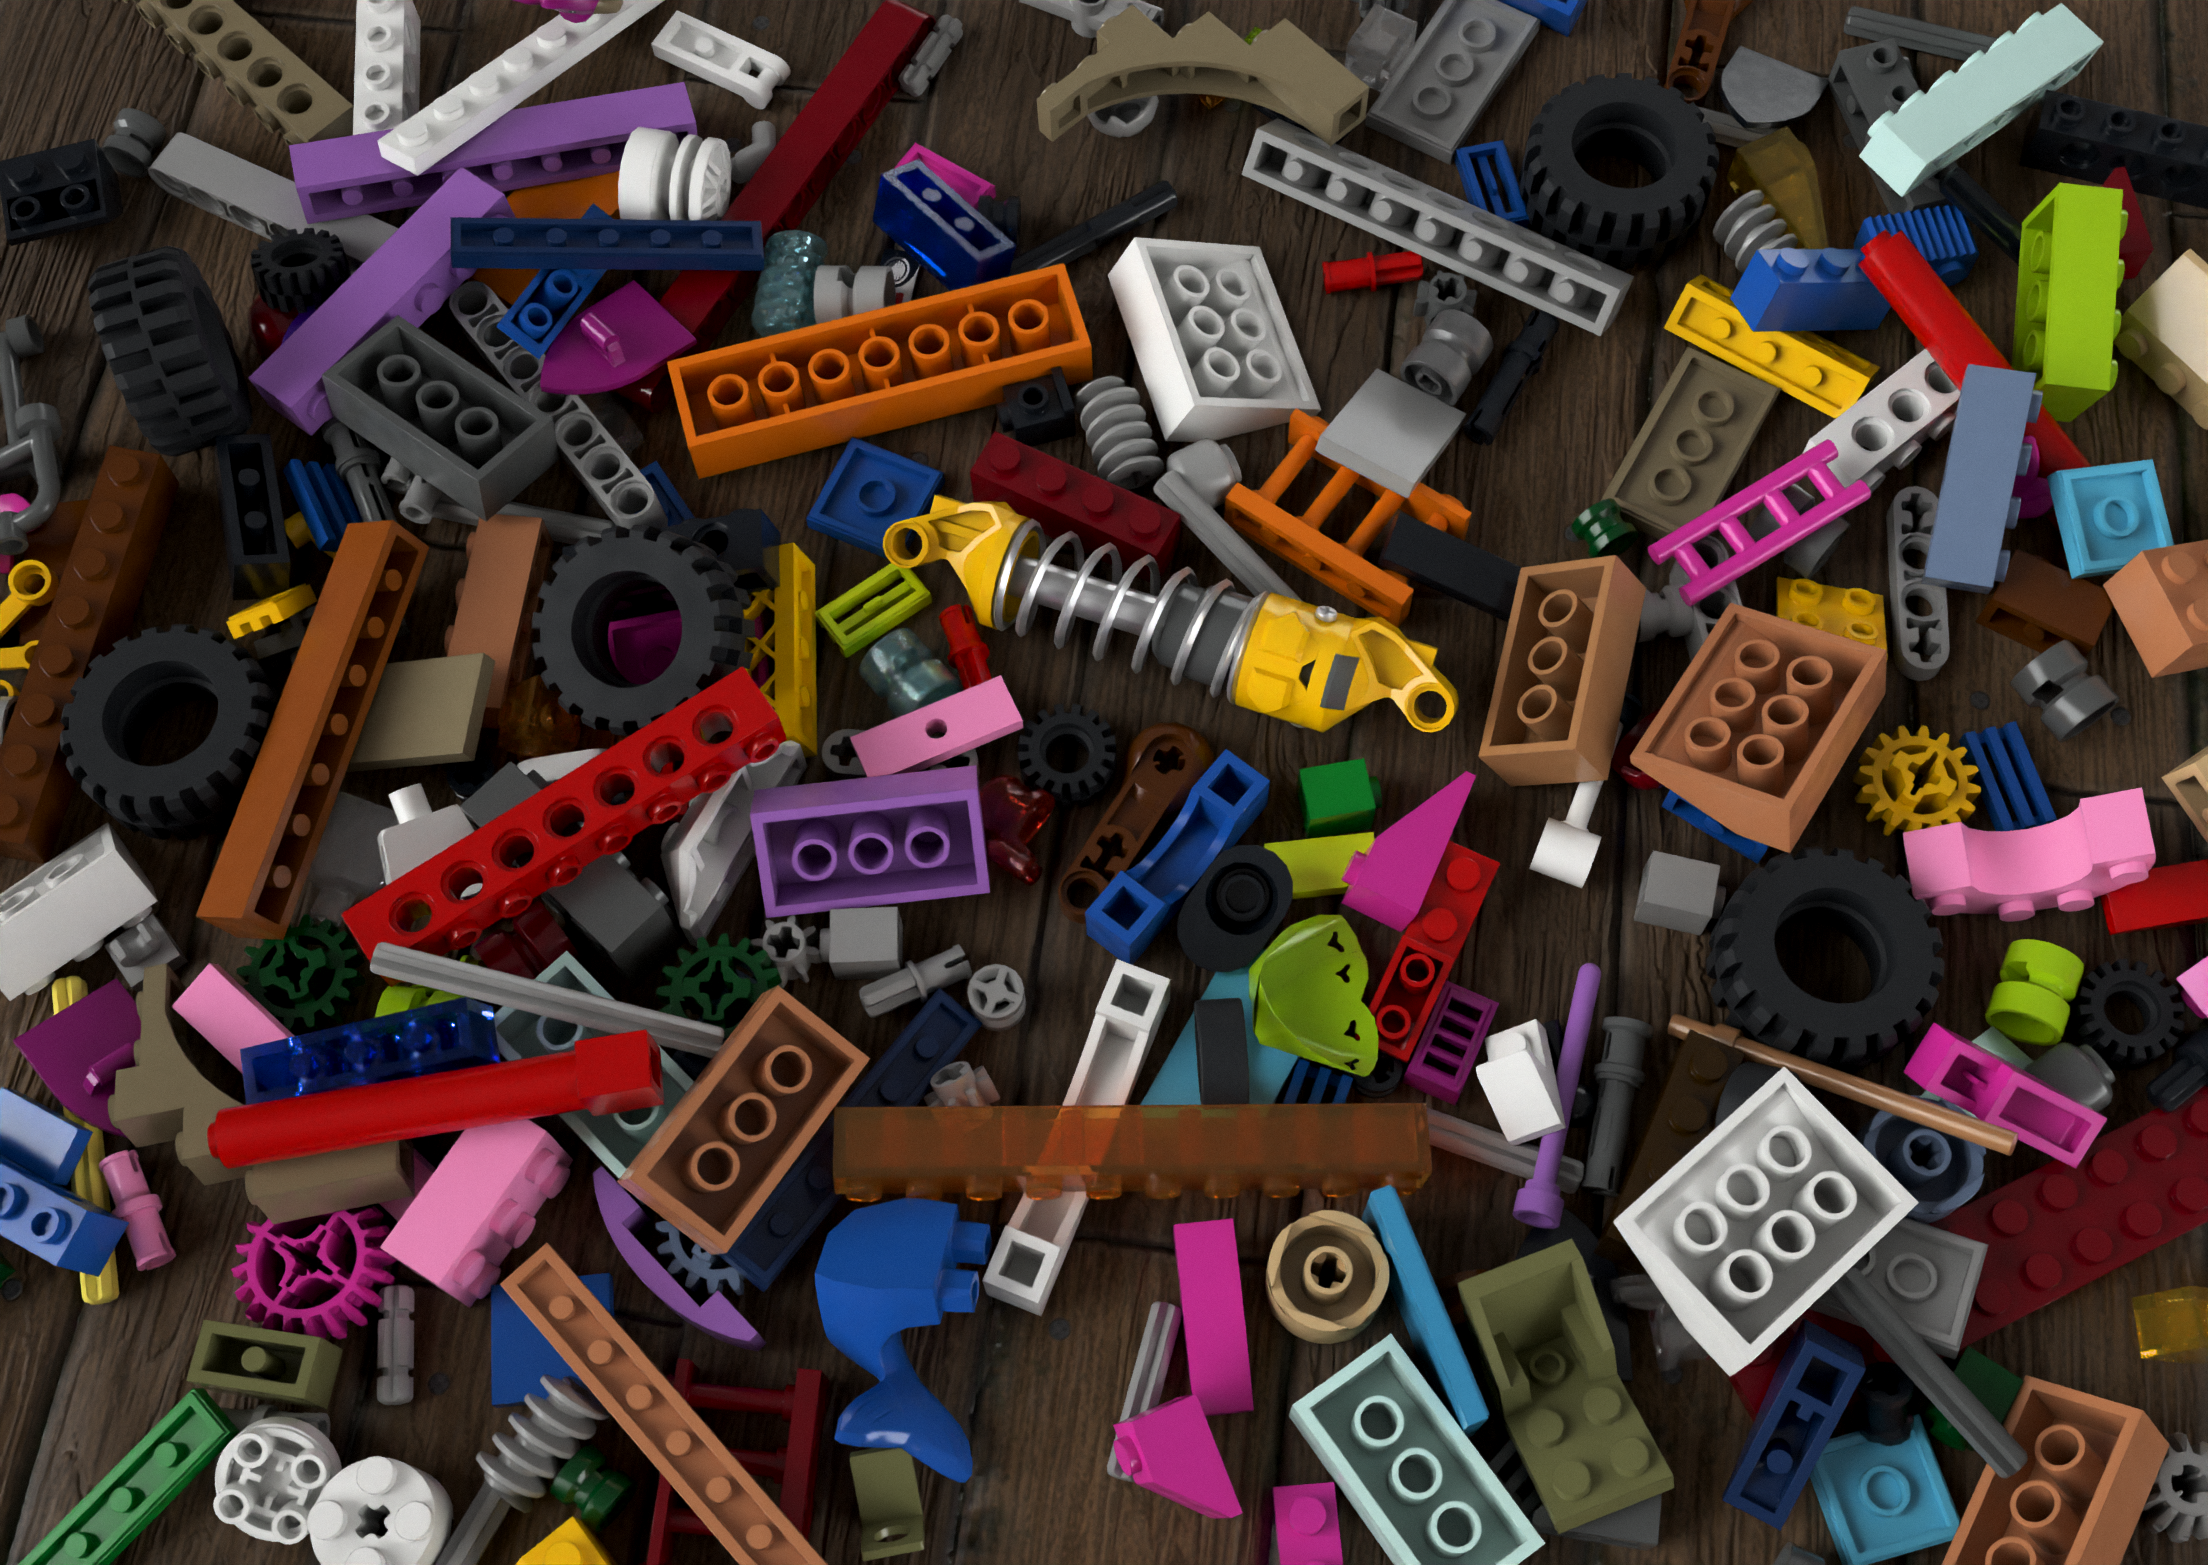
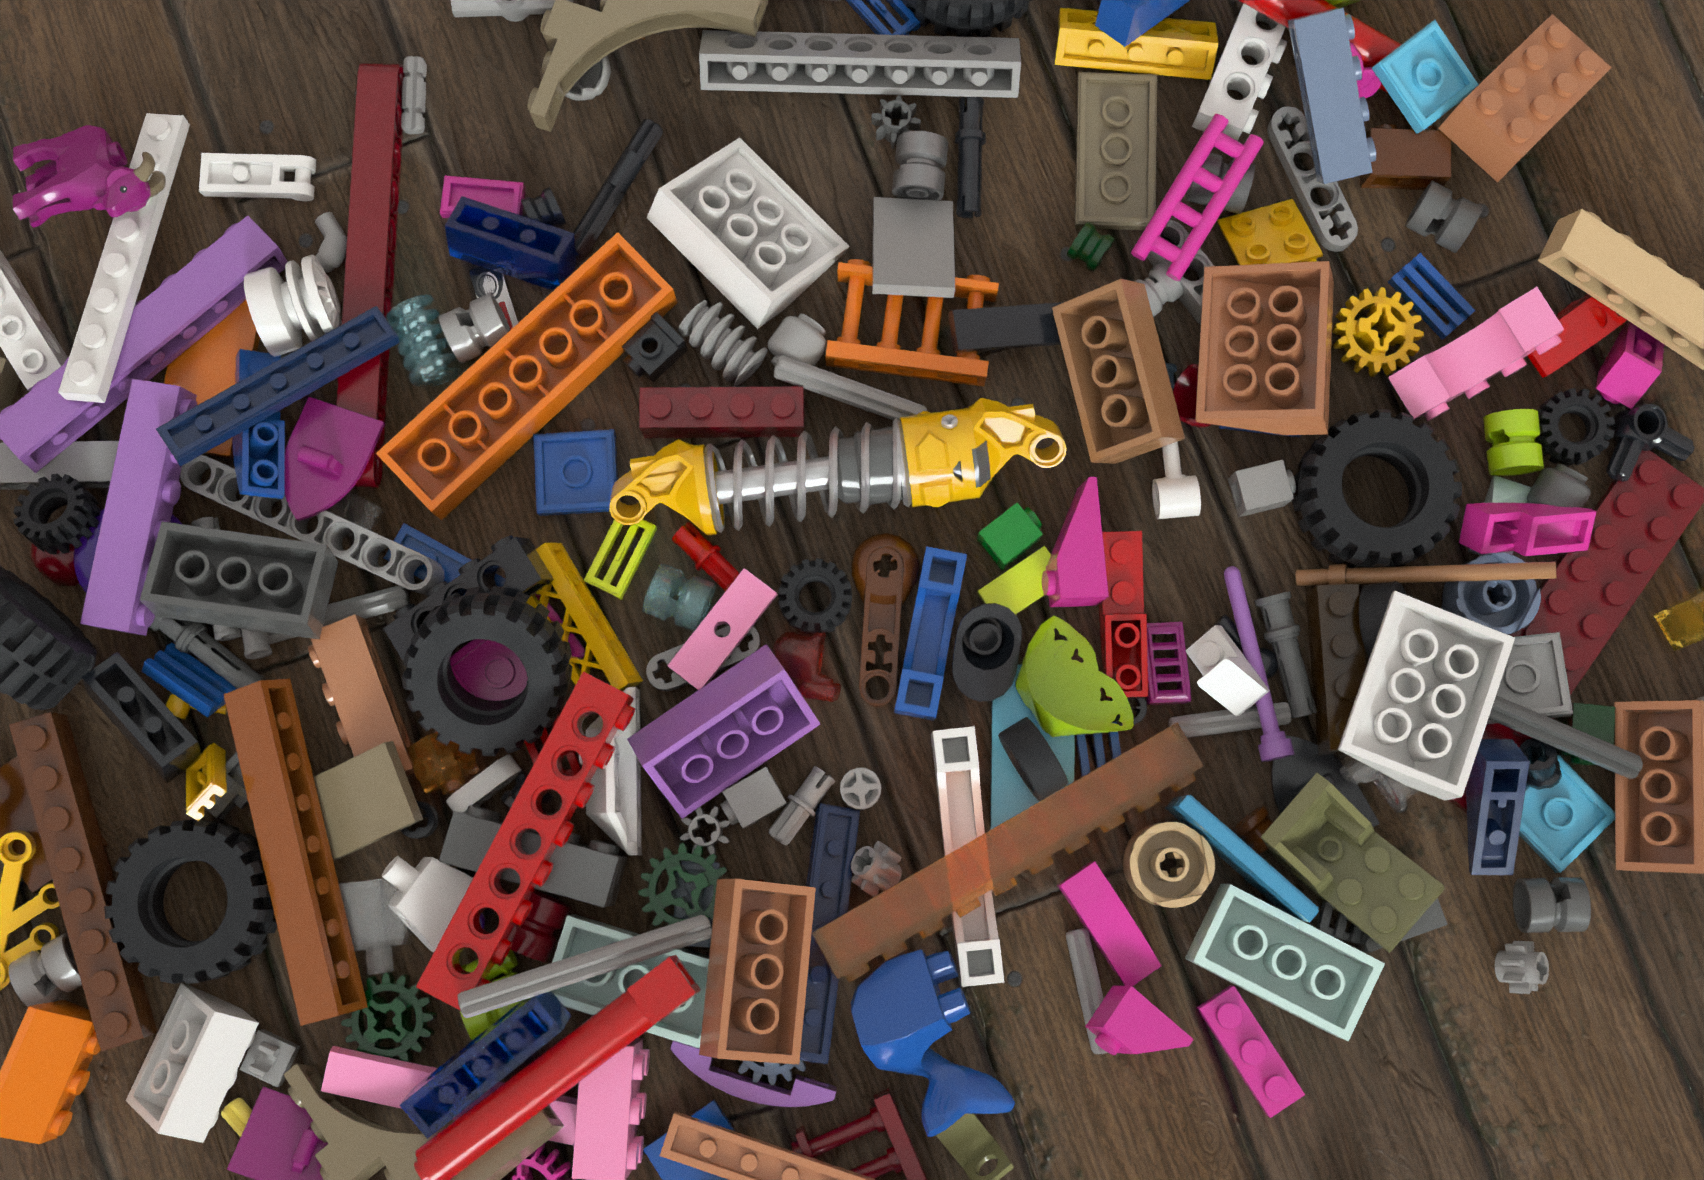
camera: 30 degrees left, 15 degrees up
(1372, 271) = (831, 120): red axle -> none

